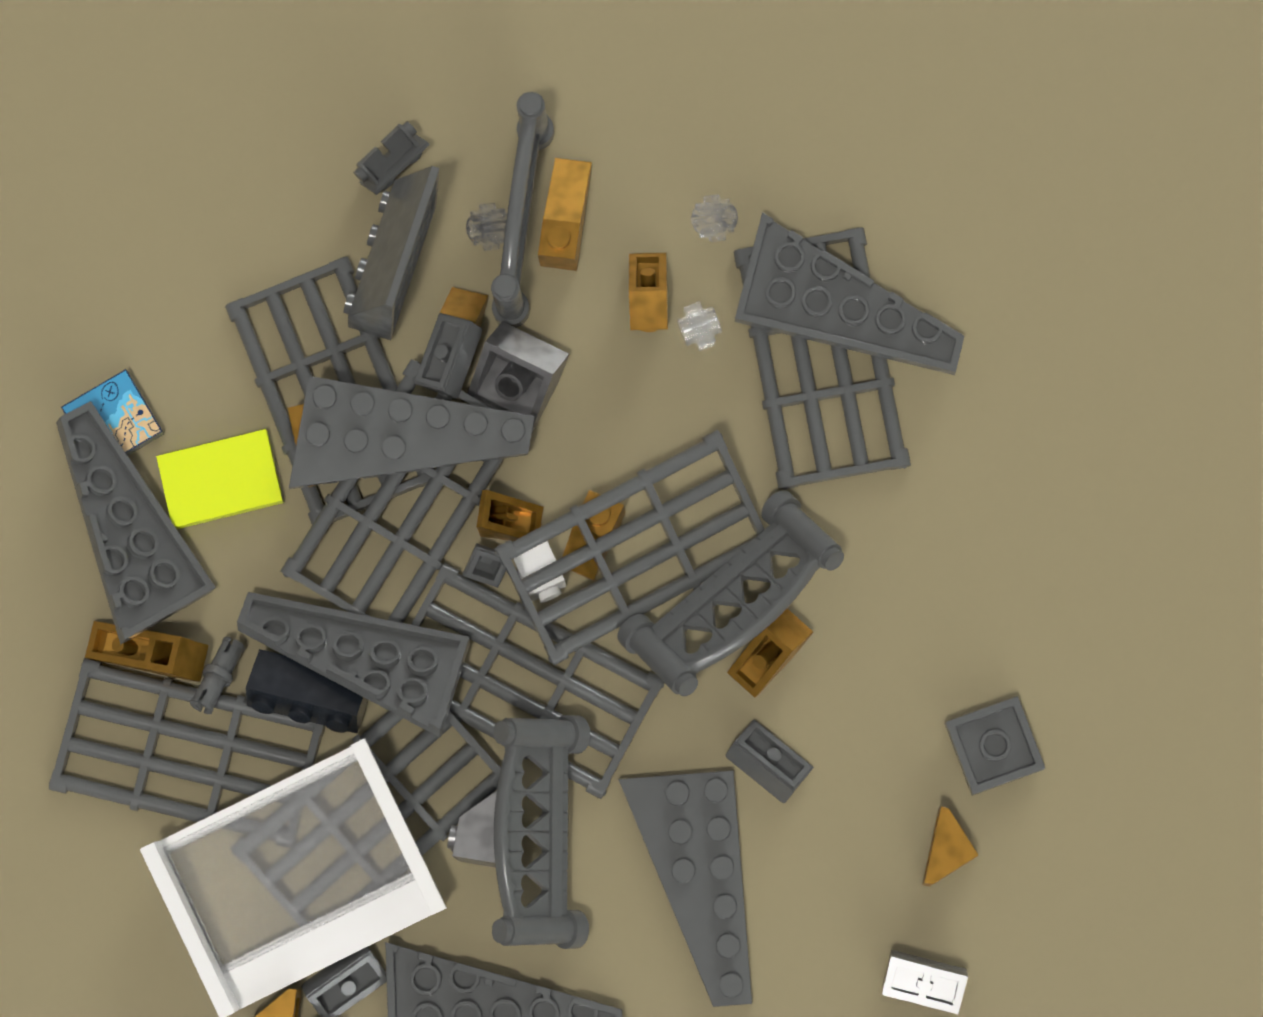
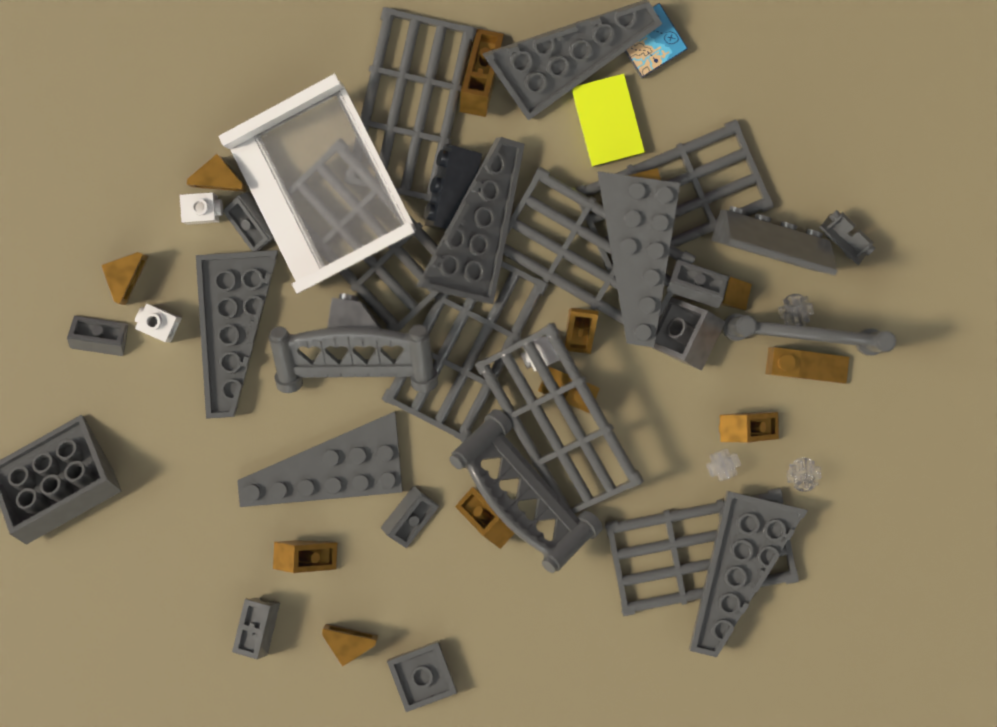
camera: 80 degrees right, 10 degrees up
(217, 675) = (464, 124): dark grey pin -> none
(484, 566) = (545, 313): dark grey slope -> none
(822, 910) = (304, 556): none -> pearl gold slope

